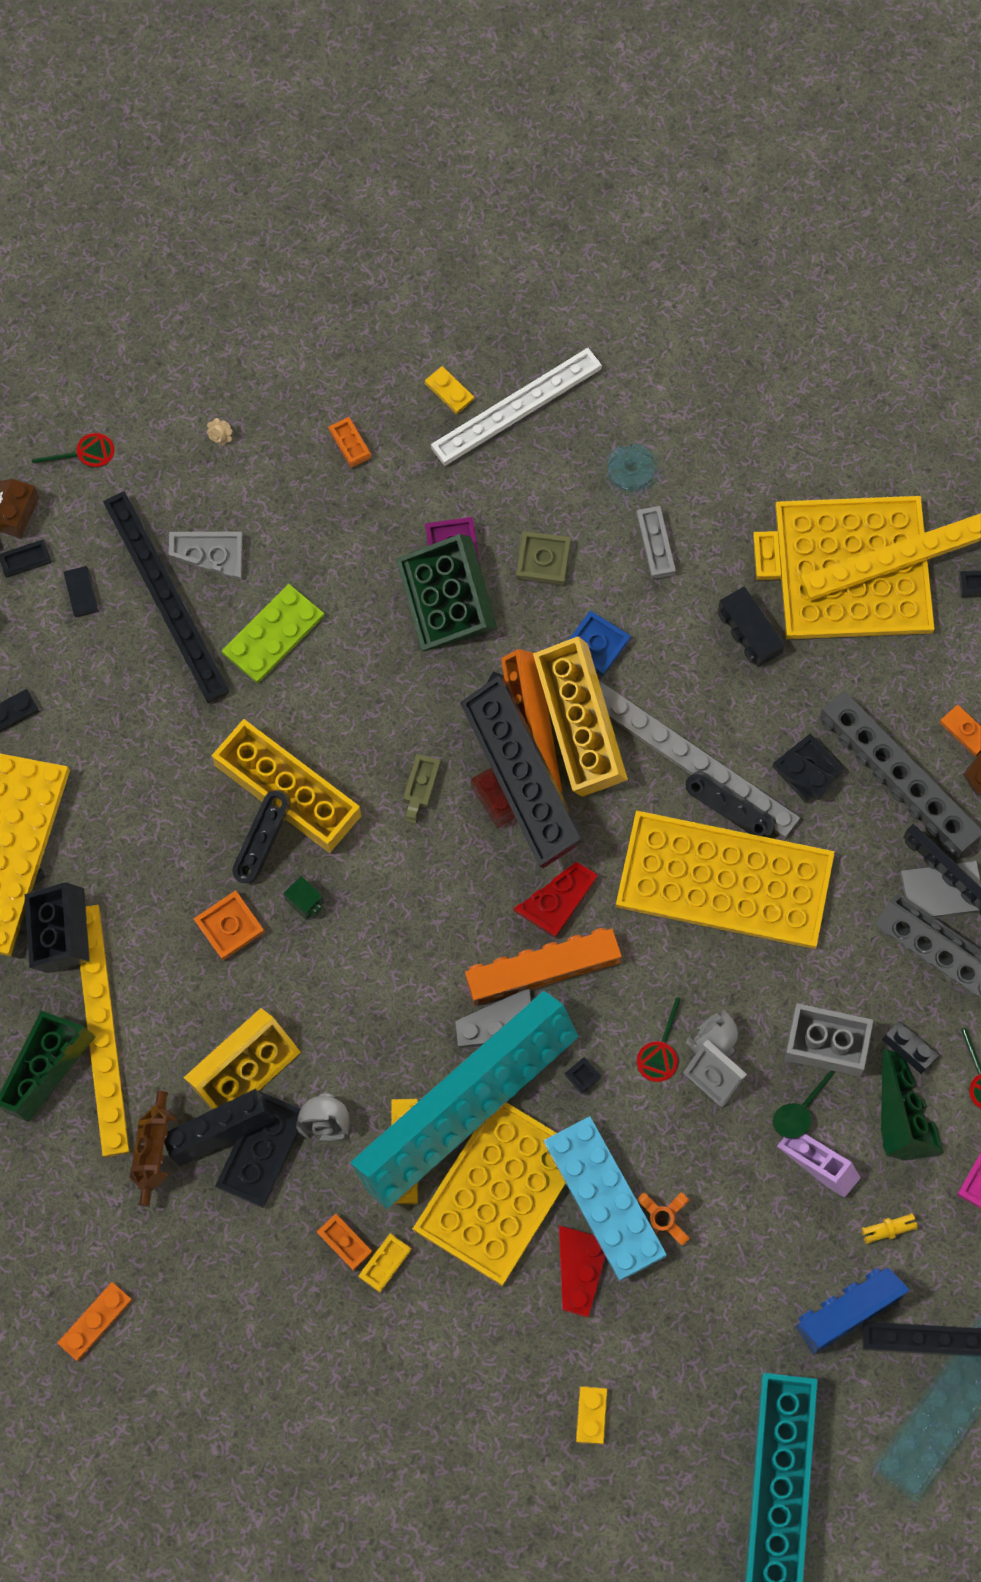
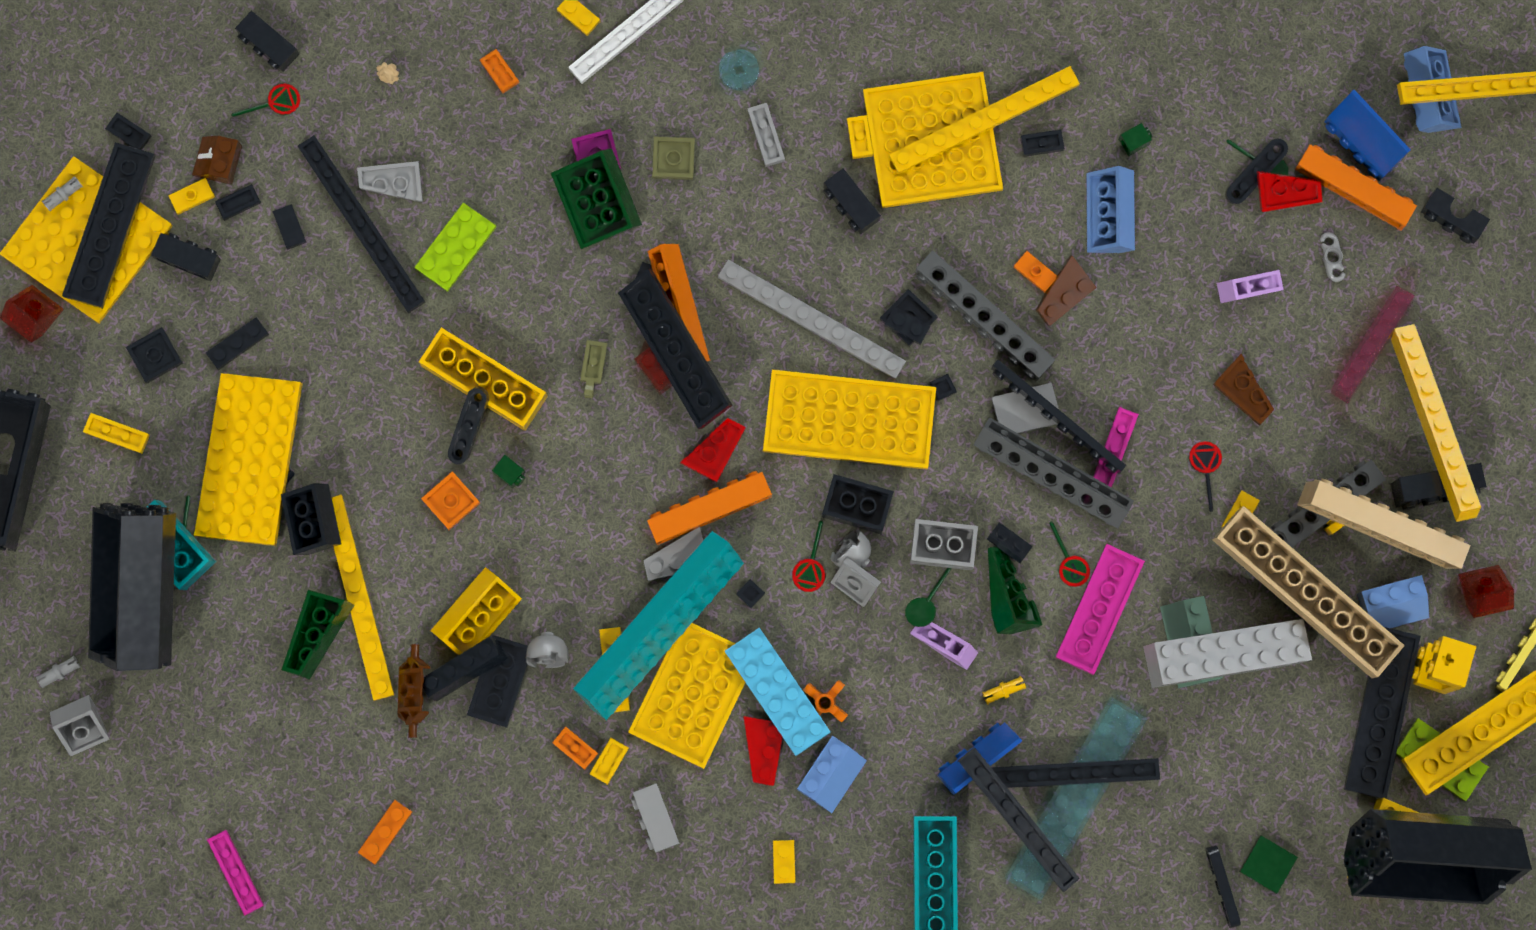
camera: 10 degrees left, 10 degrees up
(84, 384) = (266, 41): none -> black brick
(434, 1341) = (654, 818): none -> light grey brick
(580, 717) = (718, 295): yellow brick -> none
(603, 639) = (725, 228): blue plate -> none
(662, 1310) = (831, 774): none -> medium blue slope
(725, 980) = (857, 504): none -> black brick
(730, 804) = (848, 356): black plate -> none
(844, 853) = (943, 386): none -> black tile
(897, 1391) = (1018, 819): none -> black plate

